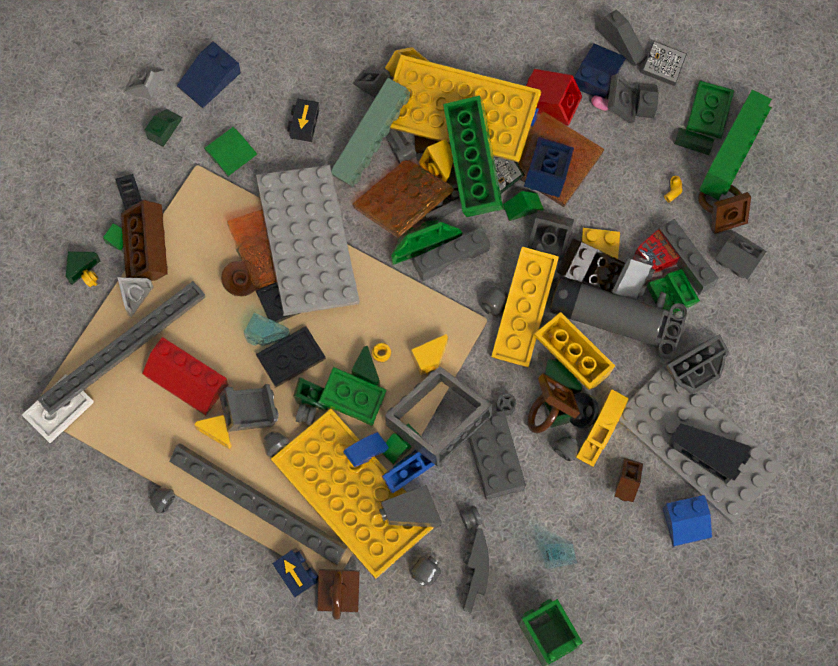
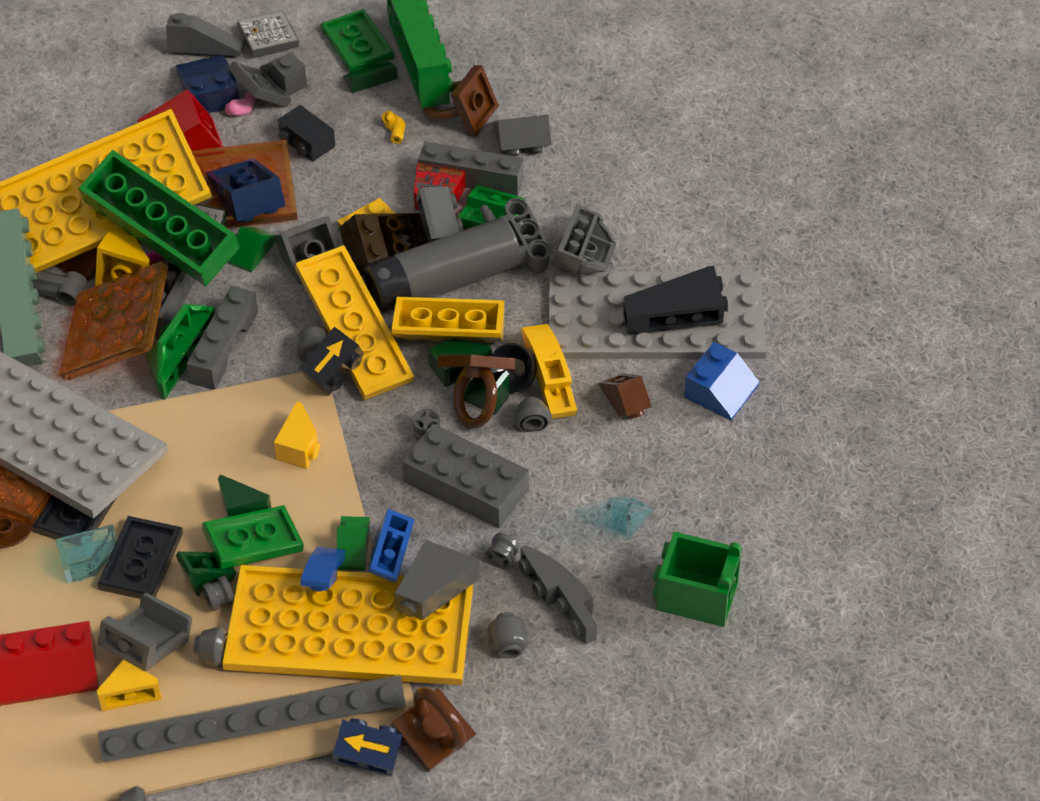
camera: 40 degrees left, 20 degrees down
(381, 347) = (242, 471): yellow plate -> none
(458, 435) = (377, 508): dark grey window -> none
(488, 324) = (332, 361): none -> black brick
(619, 153) = (306, 133): none -> black brick

